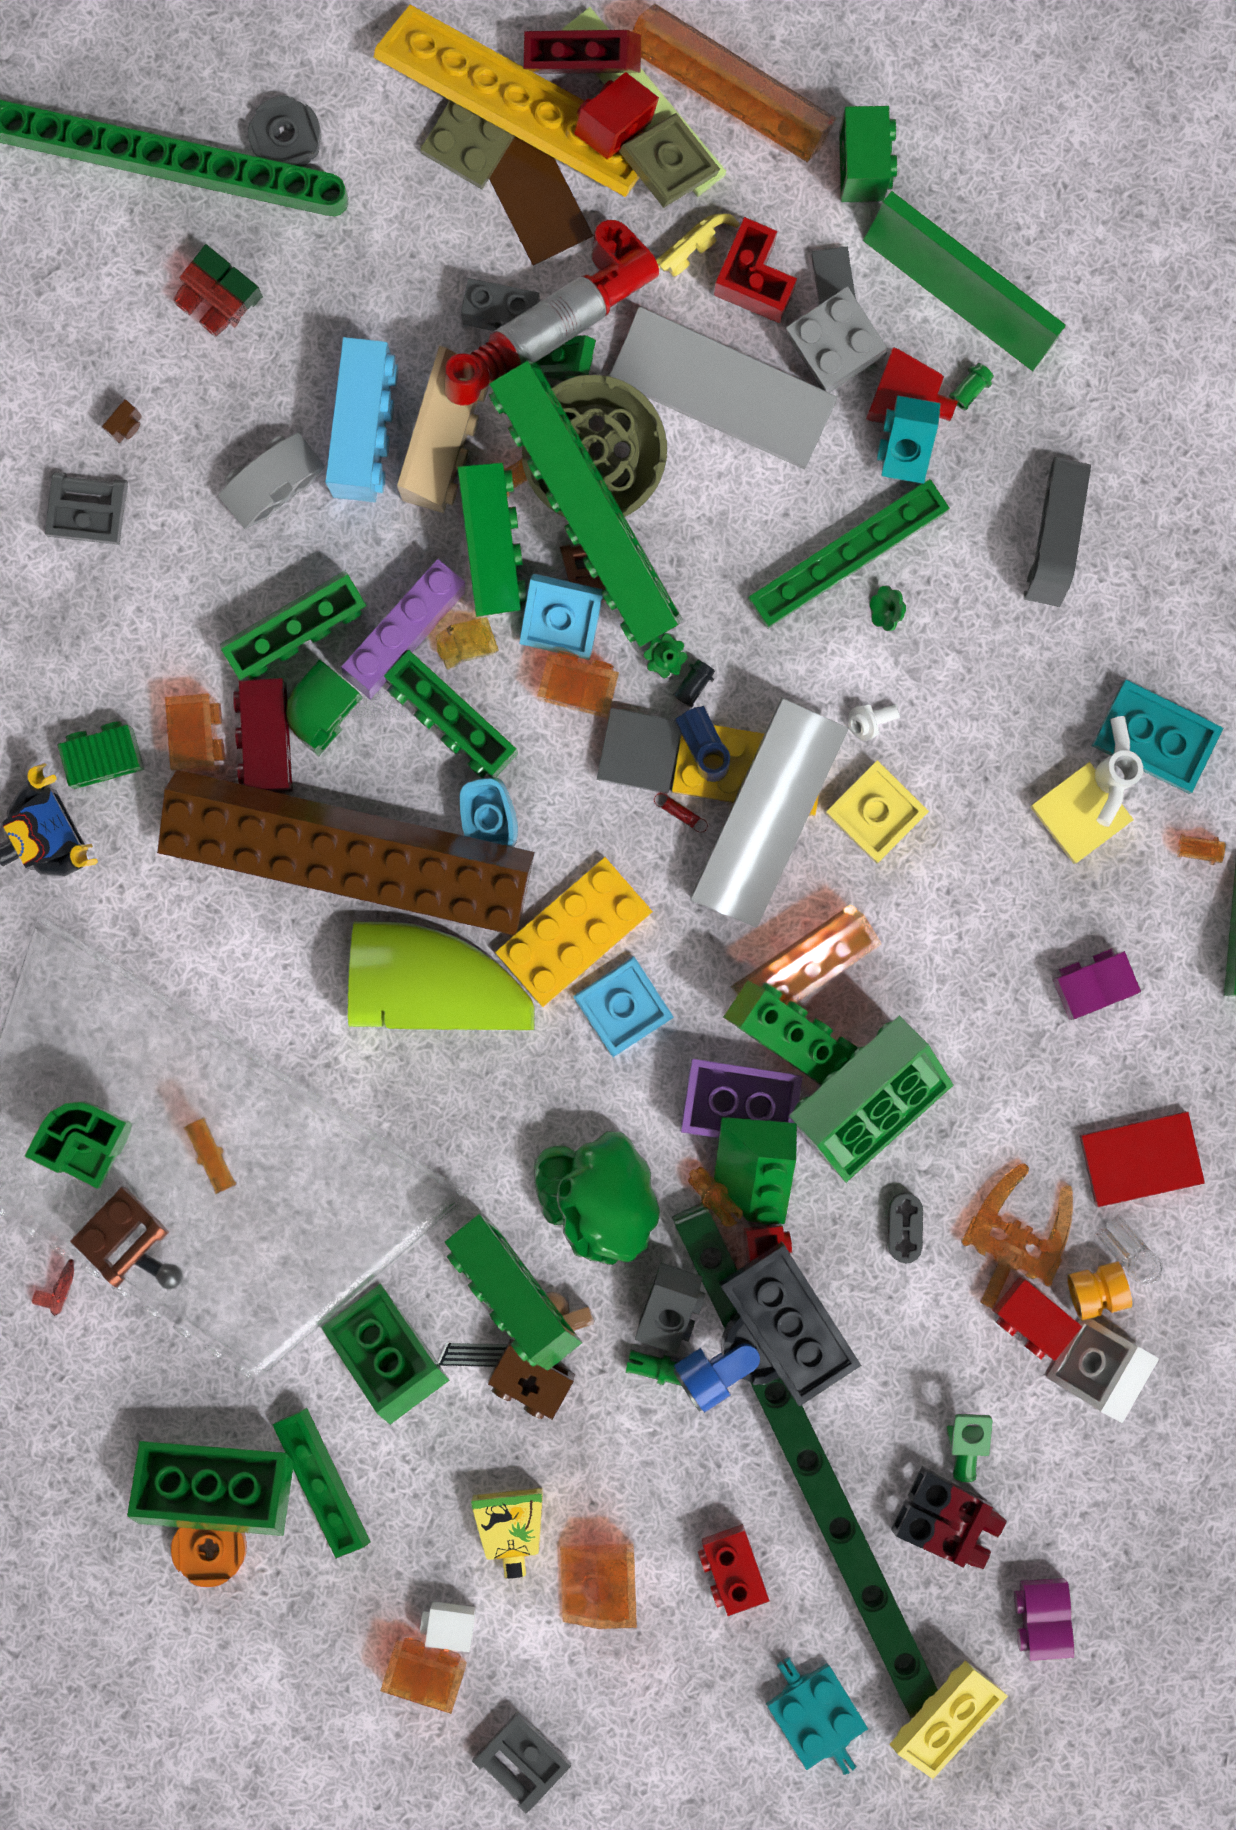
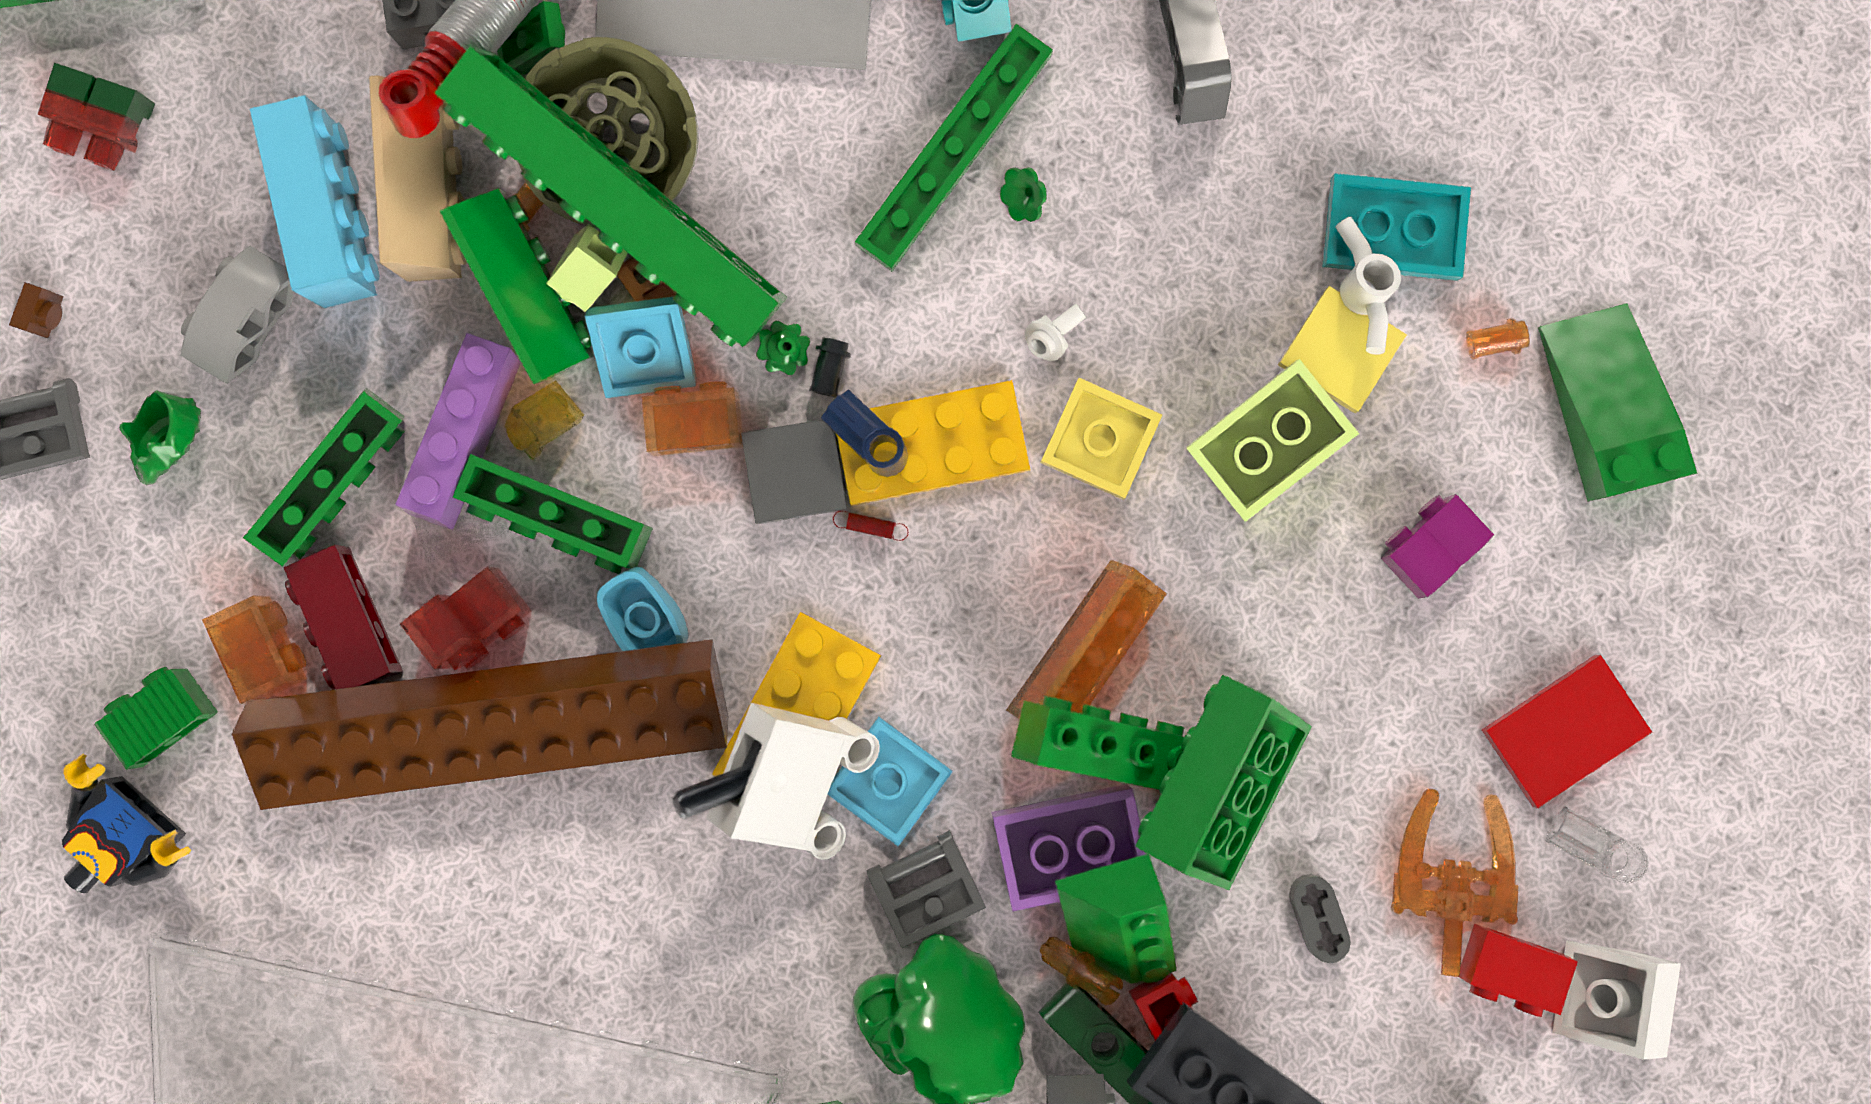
camera: 15 degrees left, 0 degrees up
(181, 548) = (161, 434): none -> green hair
(320, 706) = (391, 562): green brick -> none
(360, 770) = (460, 626): none -> clear red brick
(429, 982) = (622, 848): lime panel -> none
(544, 544) = (585, 269): none -> yellowish green slope
(550, 972) = (781, 780): none -> white piece
(622, 1109) = (933, 903): none -> dark grey plate
(769, 812) = (974, 487): light grey arch -> none
(1001, 860) = (1272, 440): none -> yellowish green brick
(1099, 1290) = (1580, 907): light orange wheel -> none

